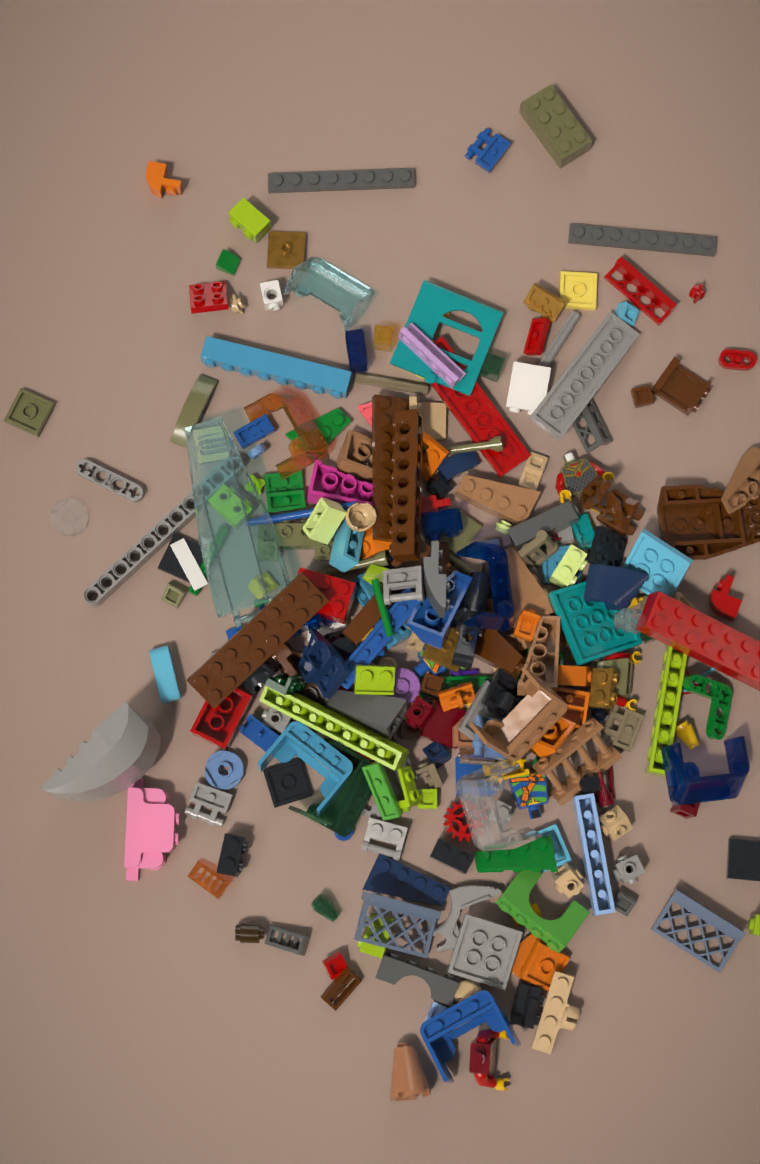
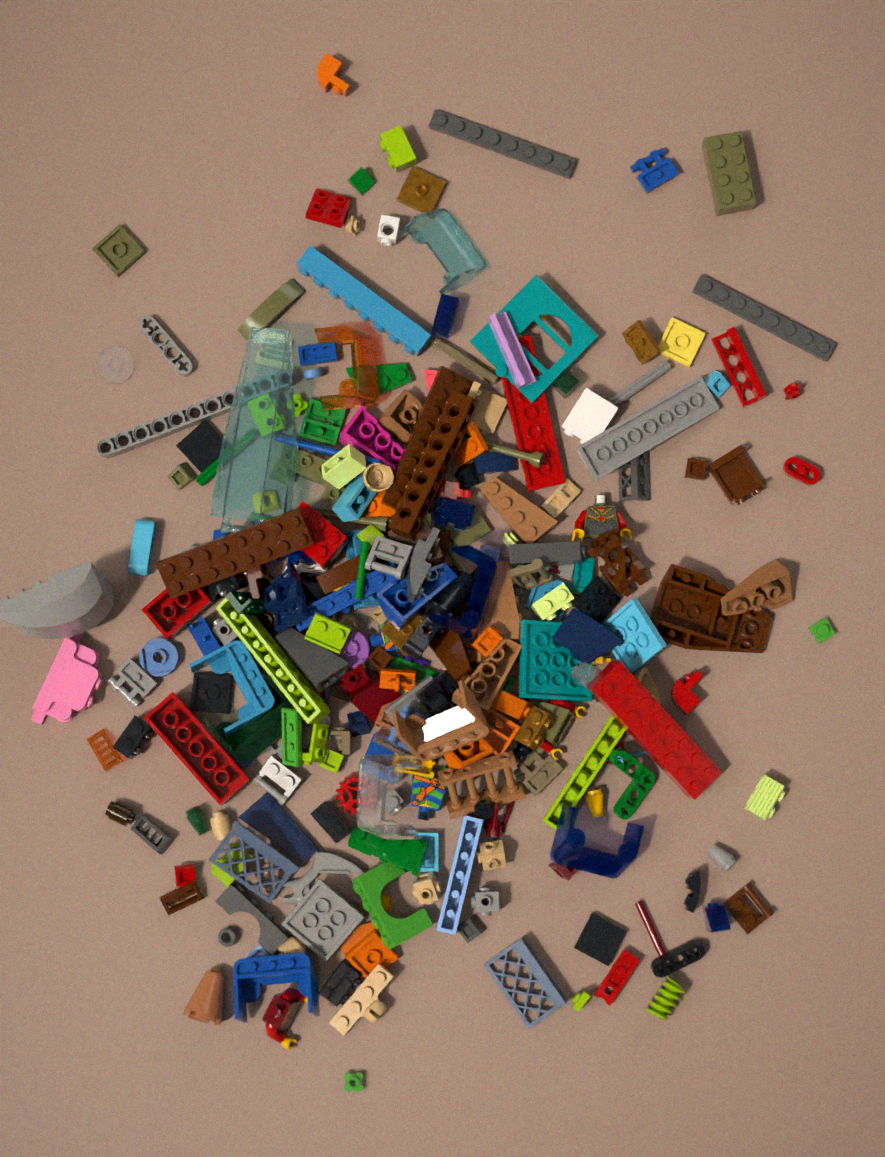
camera: 25 degrees right, 5 degrees up
(189, 564) = (205, 454): white sticker -> none
(296, 840) = (197, 748): none -> red brick
(349, 904) = (220, 825): none -> tan brick
(383, 338) = (475, 314): clear yellow brick -> none
(400, 1014) = (221, 937): none -> dark grey plate
(536, 336) = (621, 371): red plate -> none
(585, 1097) = (358, 1079): none -> bright green plate

